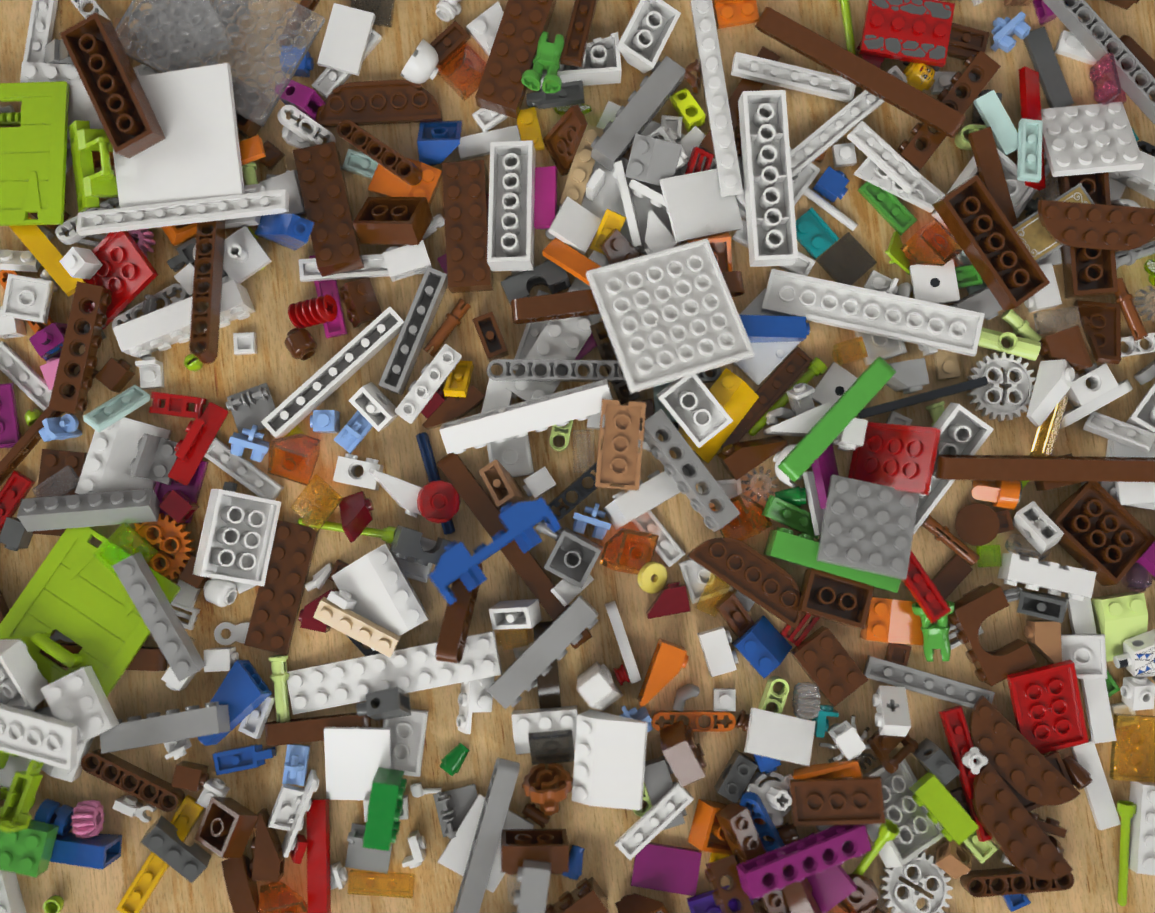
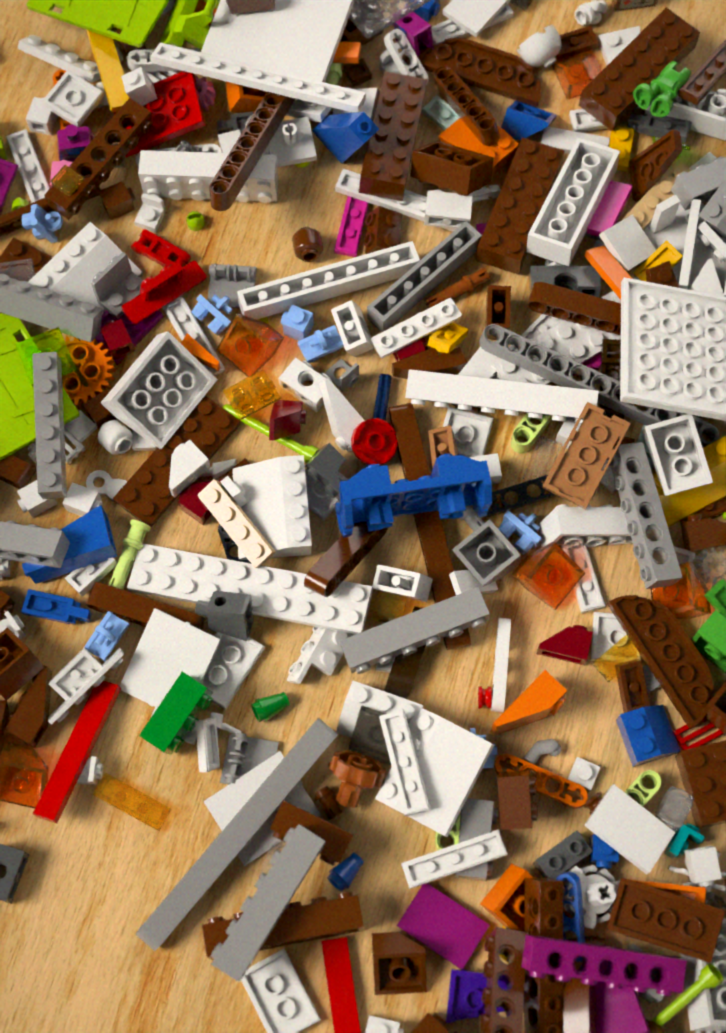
camera: 25 degrees right, 15 degrees down
(61, 387) = (67, 180): none -> clear yellow tile
(116, 408) = (105, 225): light aqua tile -> none
(245, 343) = (253, 224): white tile -> none
(246, 485) = (200, 353): none -> orange piece
(291, 595) = (186, 467): none -> white slope
(299, 850) = (63, 726): red tile -> none
(313, 311) = (335, 218): red piece -> none
(365, 858) = (136, 760): light grey hinge -> none
(392, 452) = (346, 380): none -> light grey bracket
(417, 845) = (189, 776): white bracket -> none
(419, 816) = (207, 745): none -> white tile
(583, 768) = (404, 762): none -> white tile
(597, 687) = (457, 688): white wedge -> none
(659, 580) = (551, 610): light yellow piece -> none
(718, 651) = (598, 717): white brick -> none

